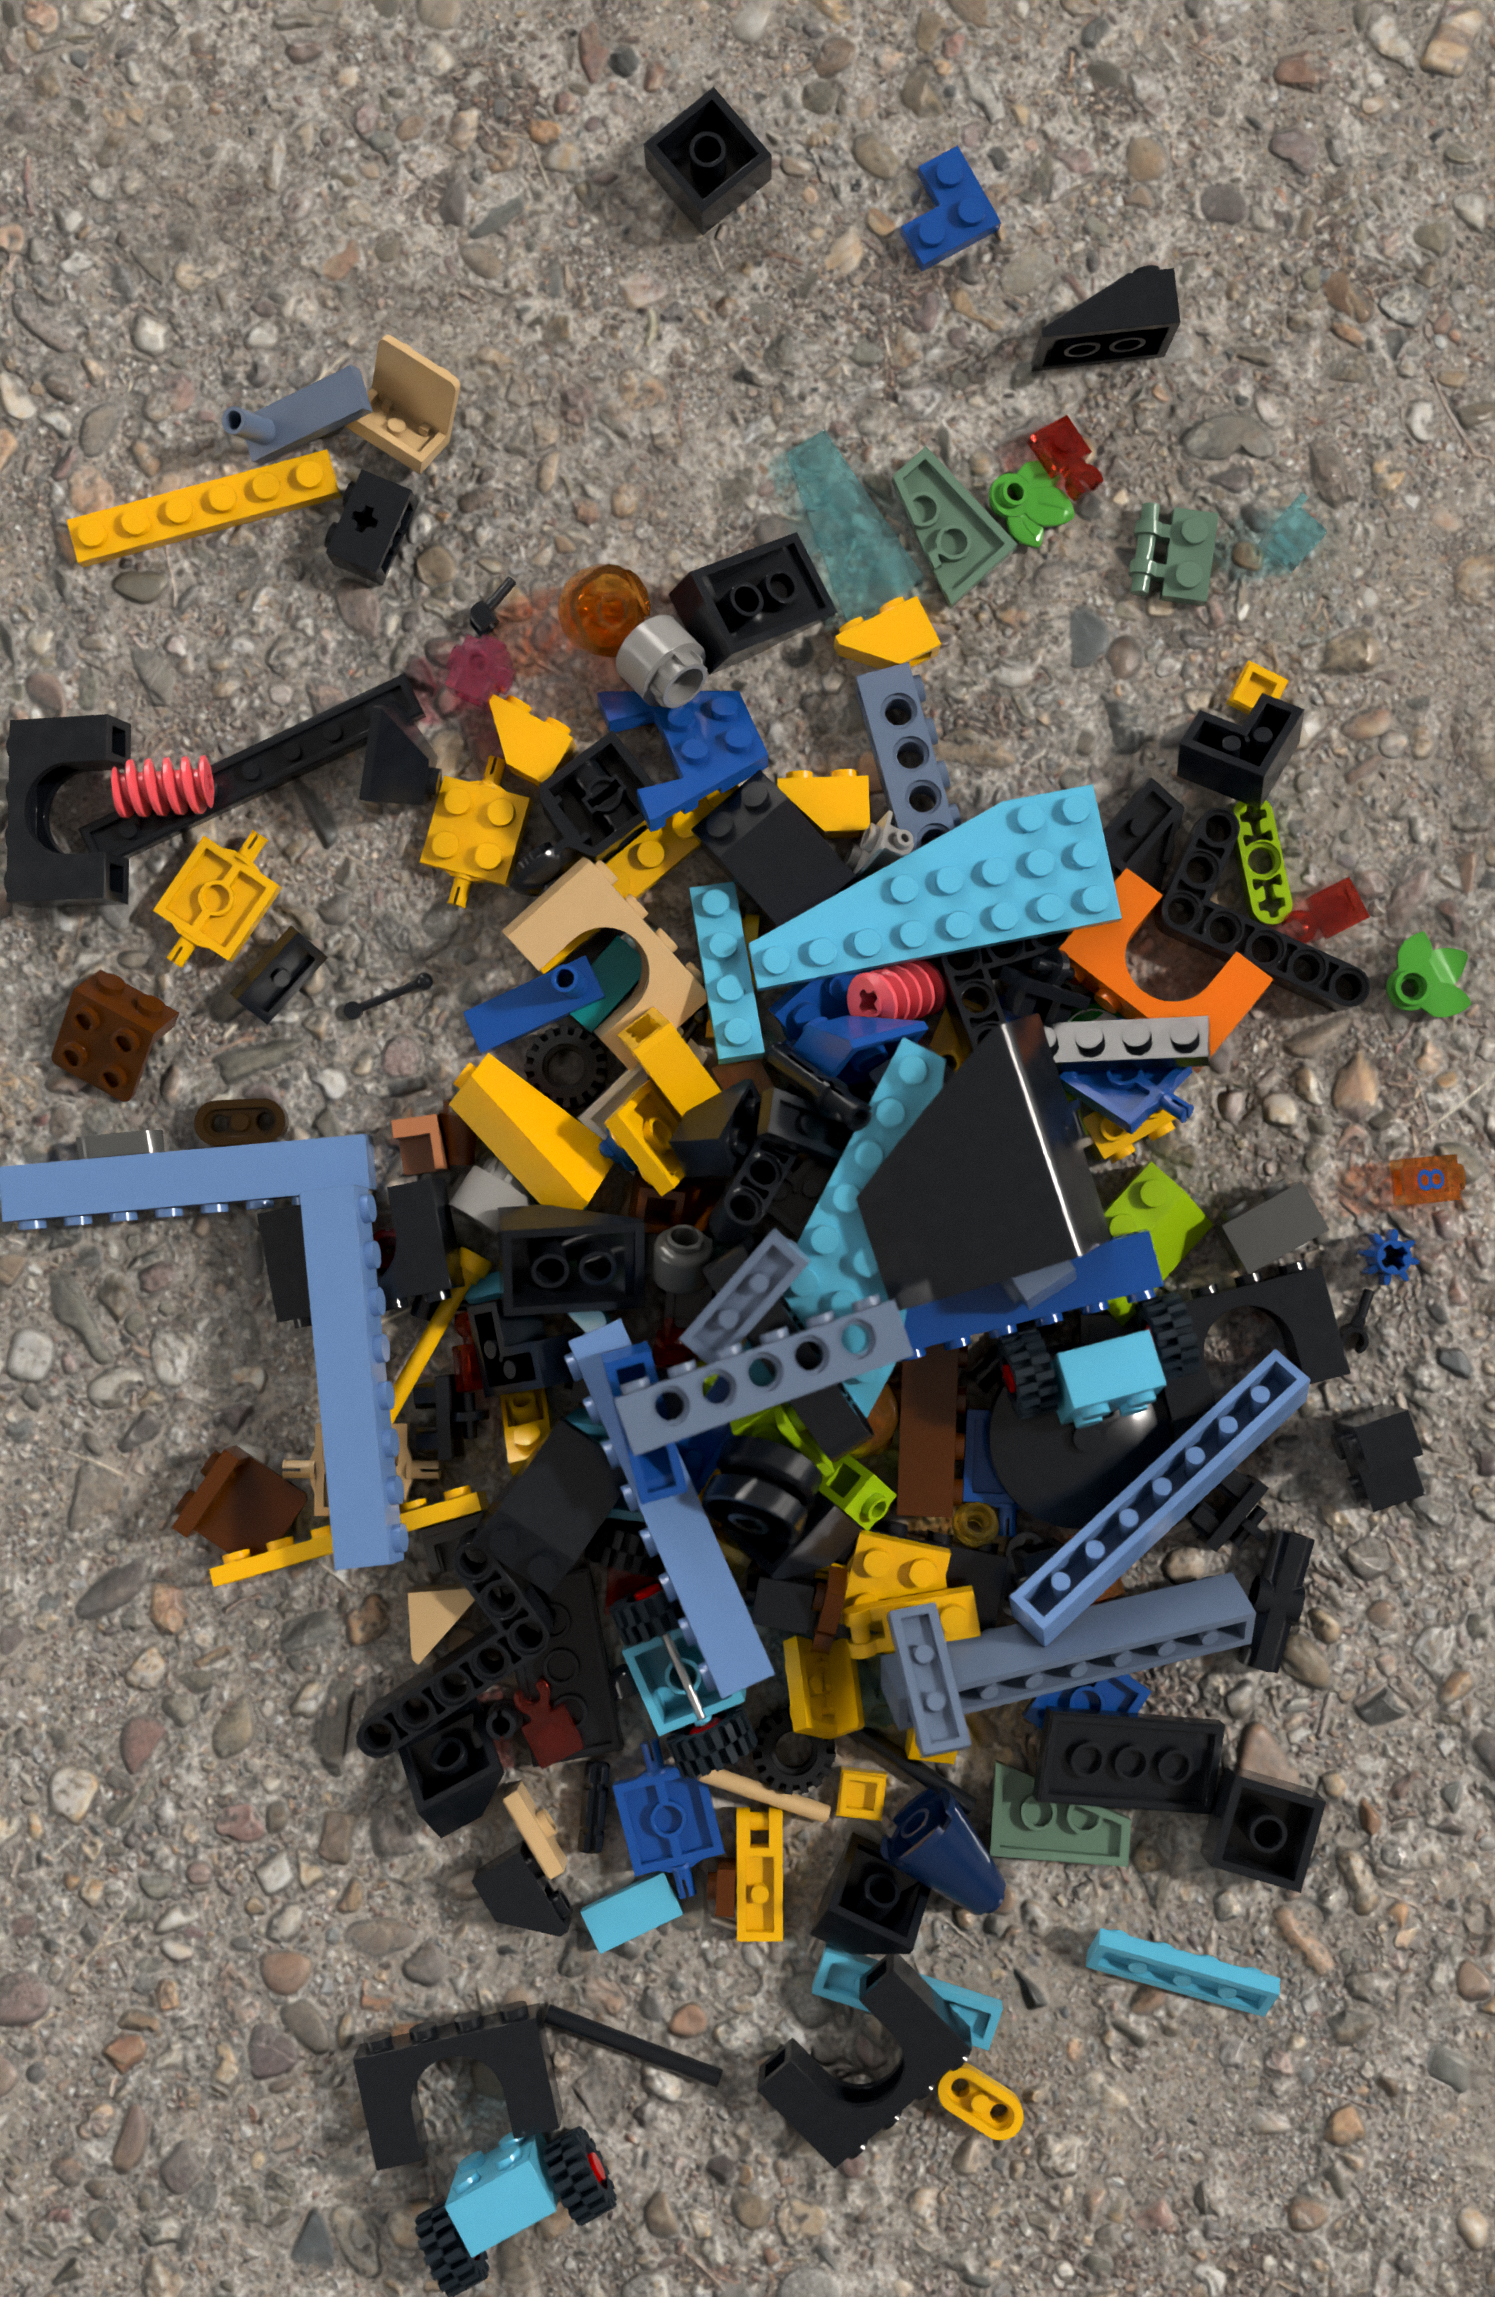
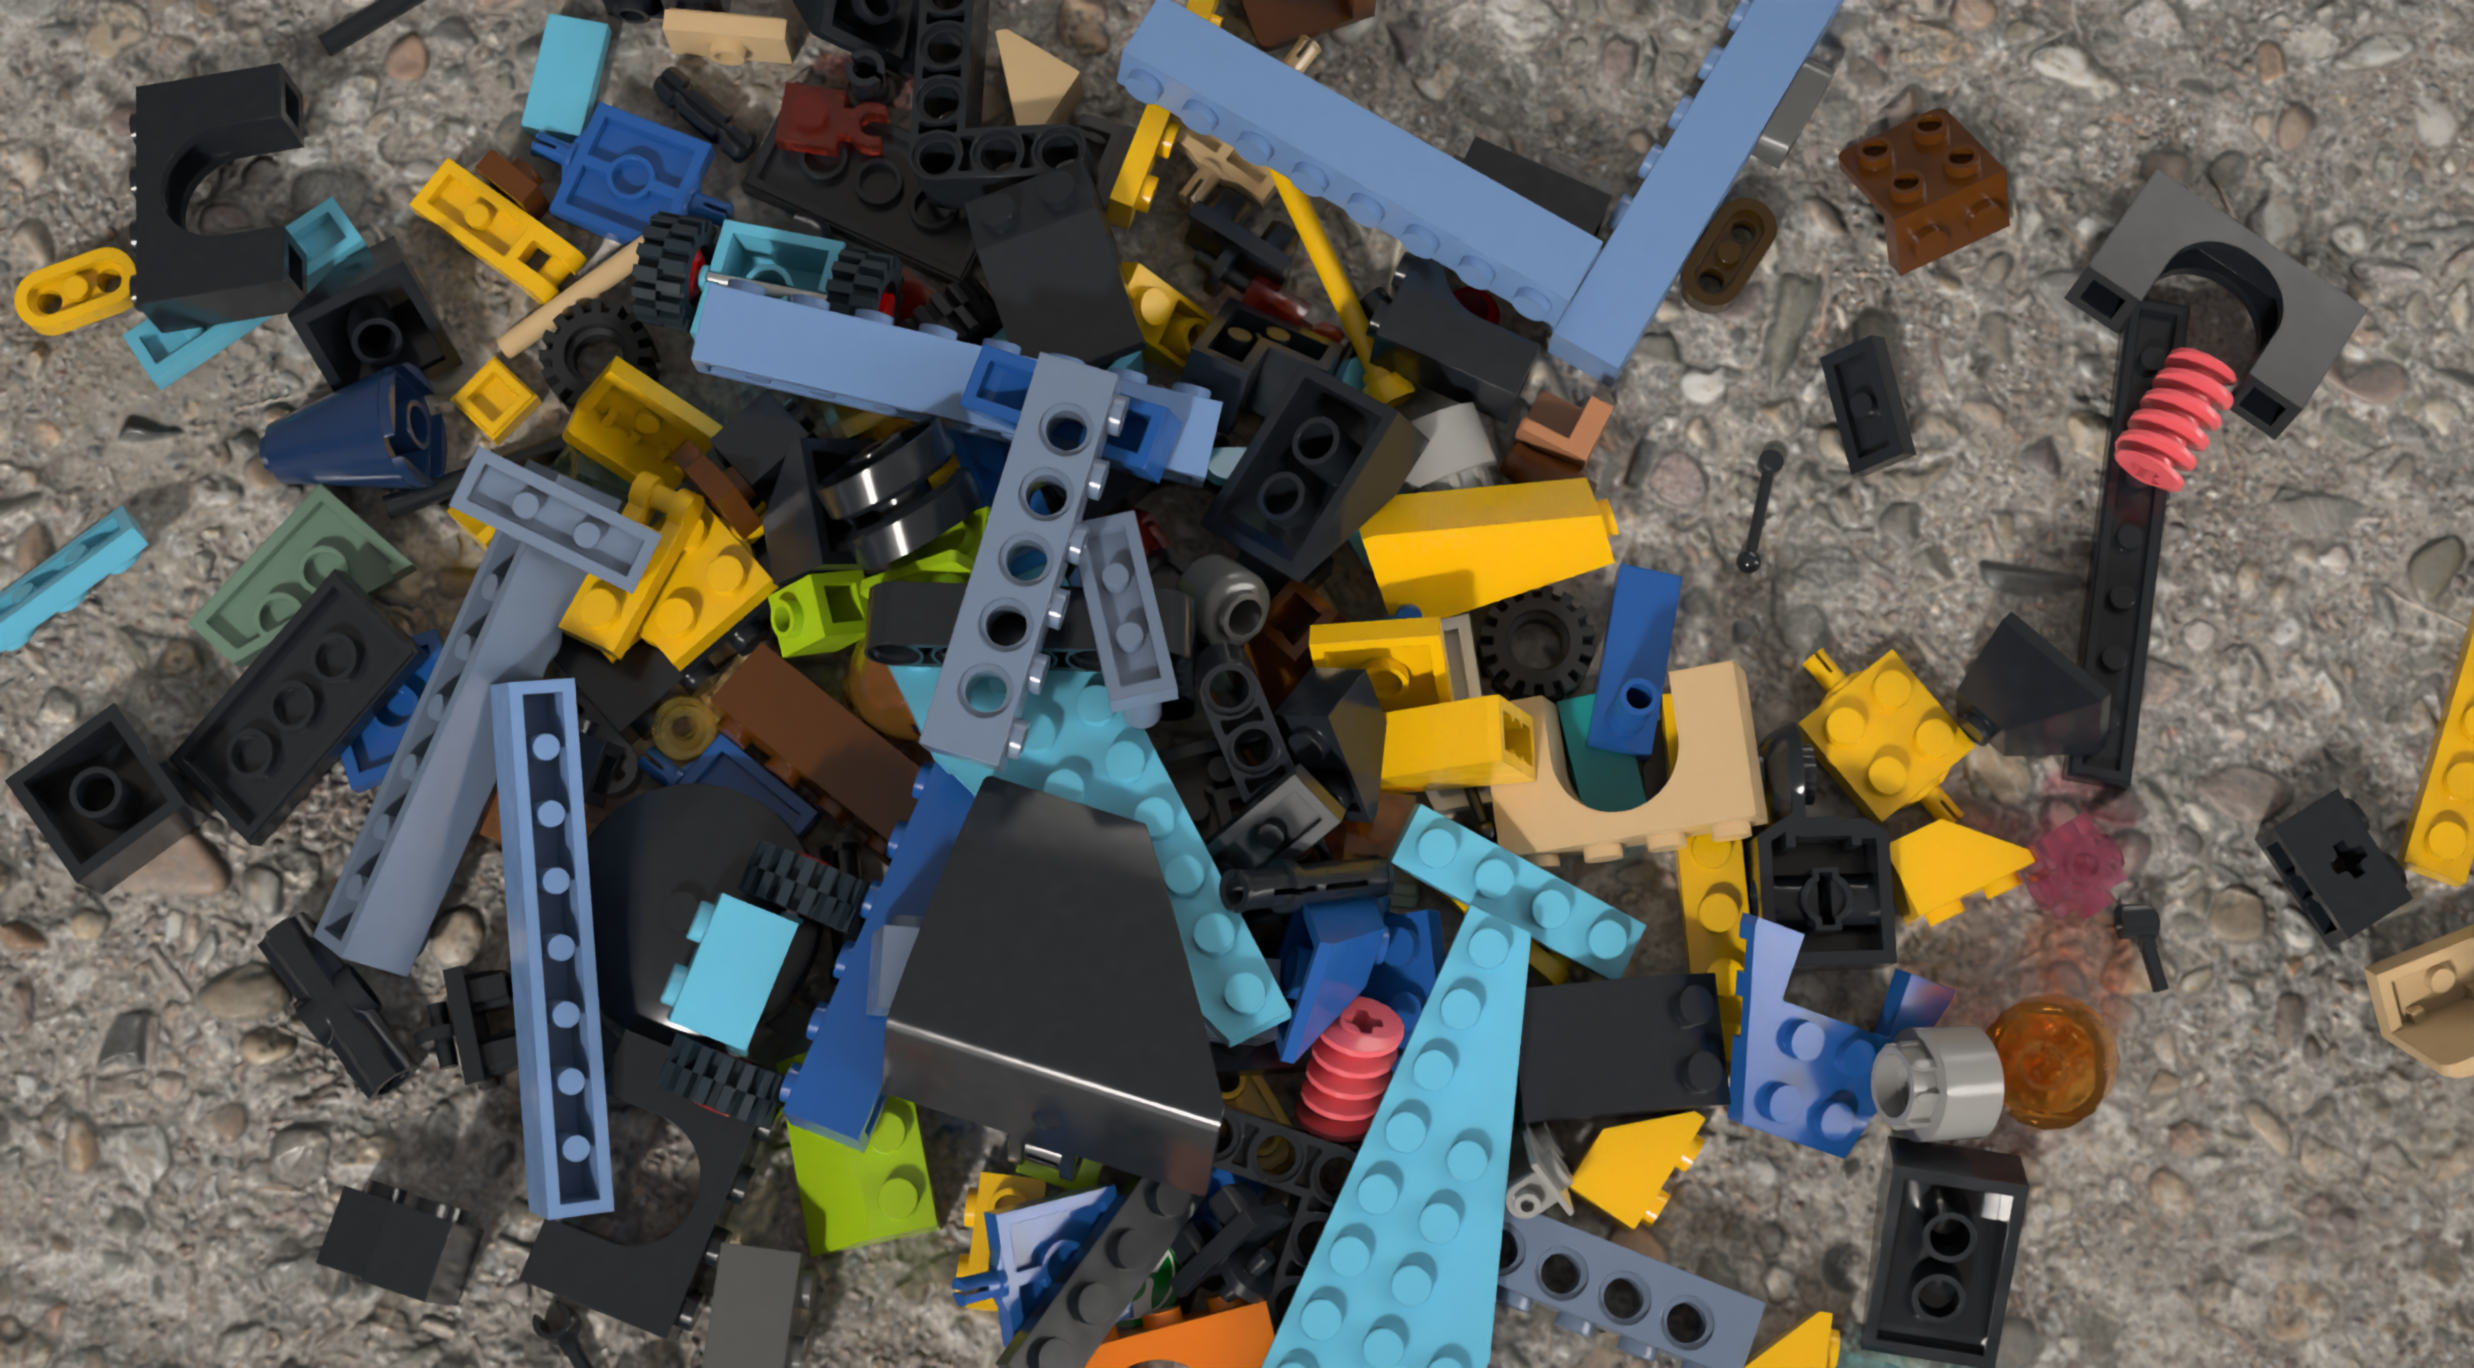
camera: 125 degrees right, 10 degrees down
(217, 899) = (2003, 400): yellow plate -> none

